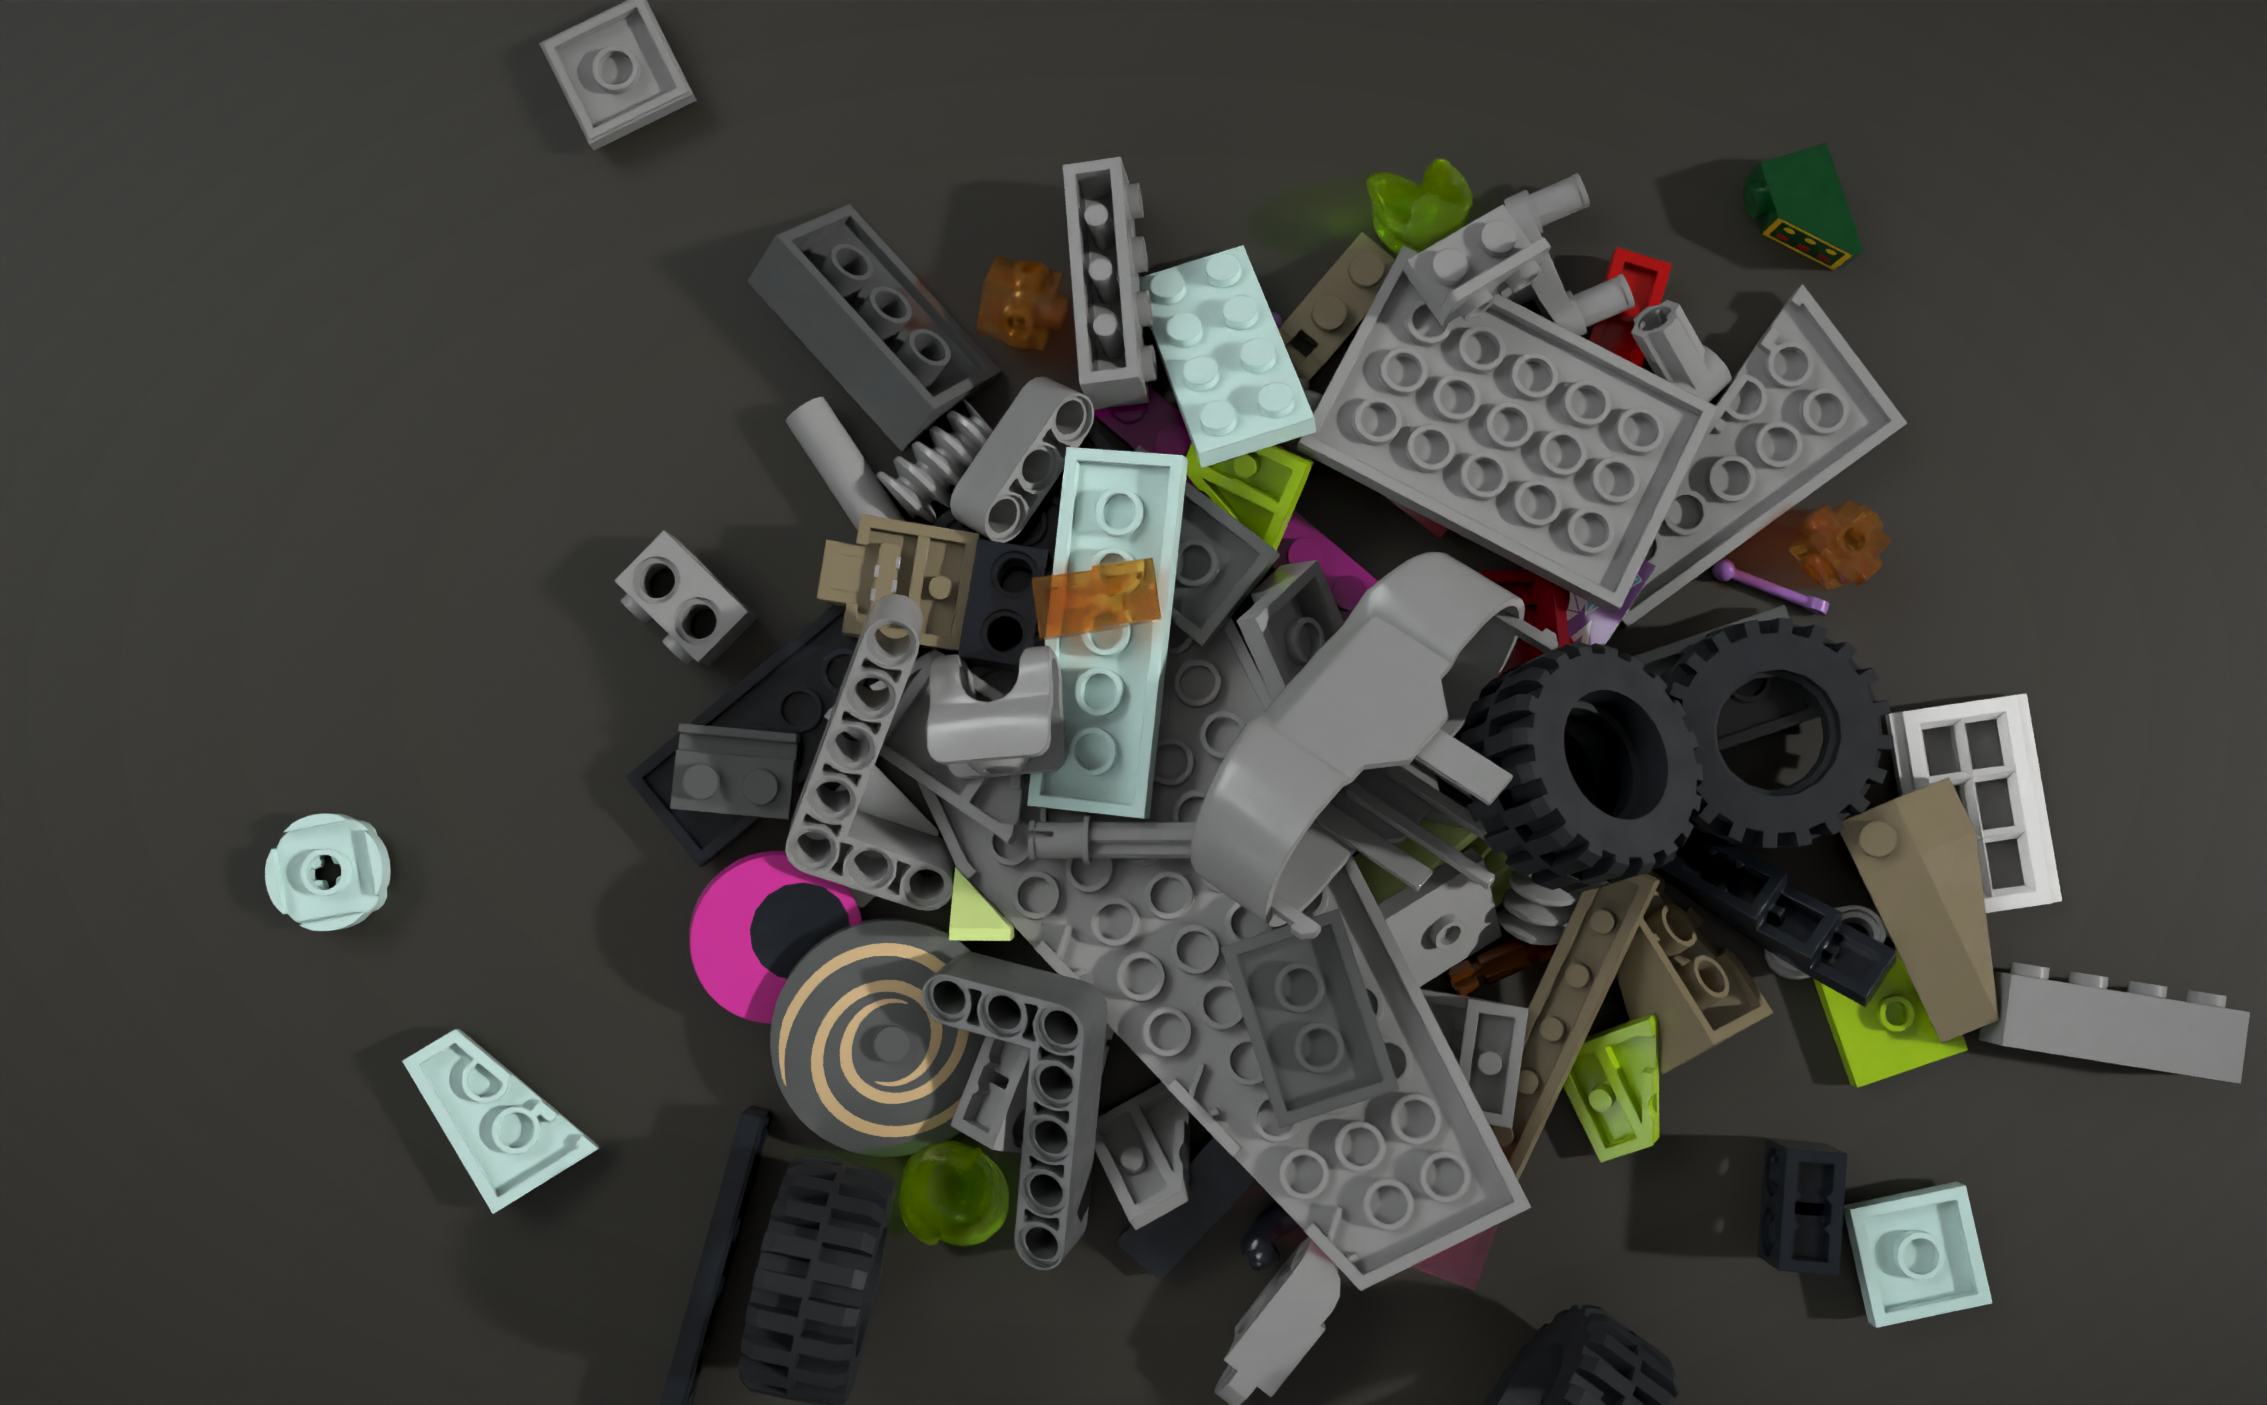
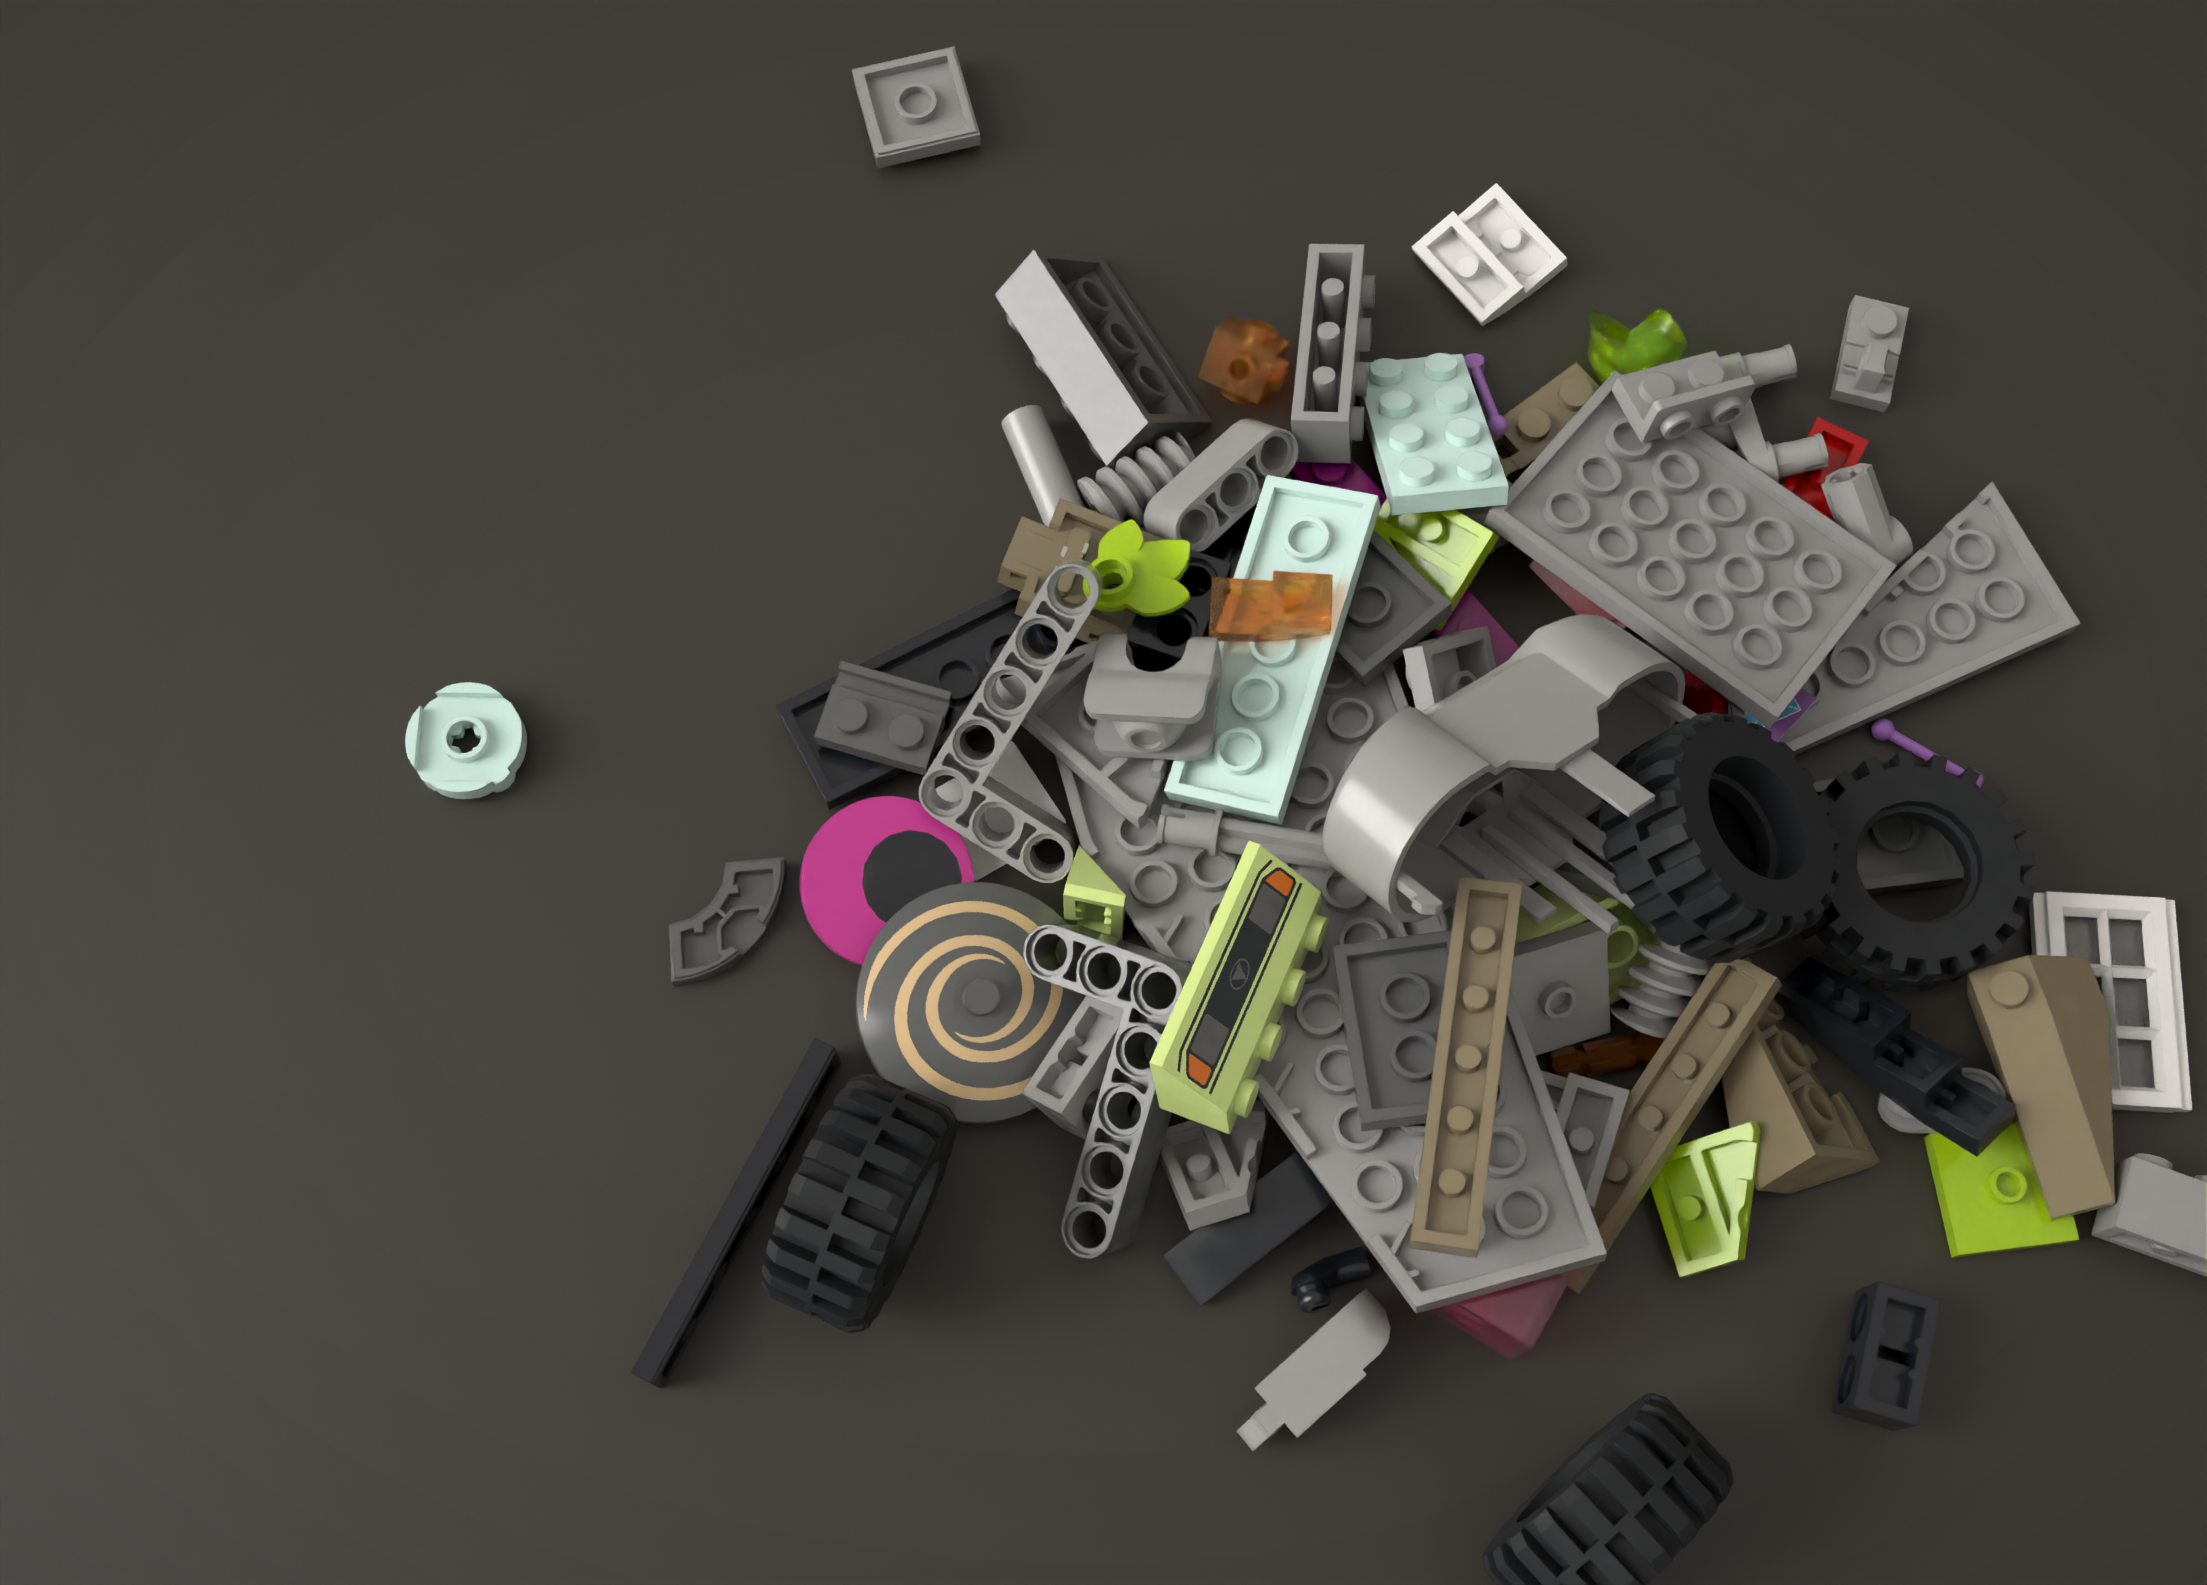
camera: 10 degrees right, 15 degrees down
(494, 1120) = (565, 1009): light aqua wing -> none
(636, 999) = (730, 923): none -> dark grey tile
(693, 591) = (878, 556): light grey brick -> none
(952, 1194) = (1010, 1164): clear neon green helmet -> none
(963, 577) = (1144, 569): none -> lime plate
(1138, 1016) = (1238, 992): none -> yellowish green slope
(1253, 124) = (1490, 255): none -> white slope
(1258, 254) = (1496, 423): none -> medium lavender hinge
(1370, 1059) = (1466, 1068): none -> dark tan plate
(1660, 157) = (1869, 353): none -> light grey hinge
(1804, 206) = (2001, 416): dark green slope -> none
(1822, 547) = (2001, 720): clear orange brick -> none
(1917, 1254) = (2002, 1441): light aqua plate -> none

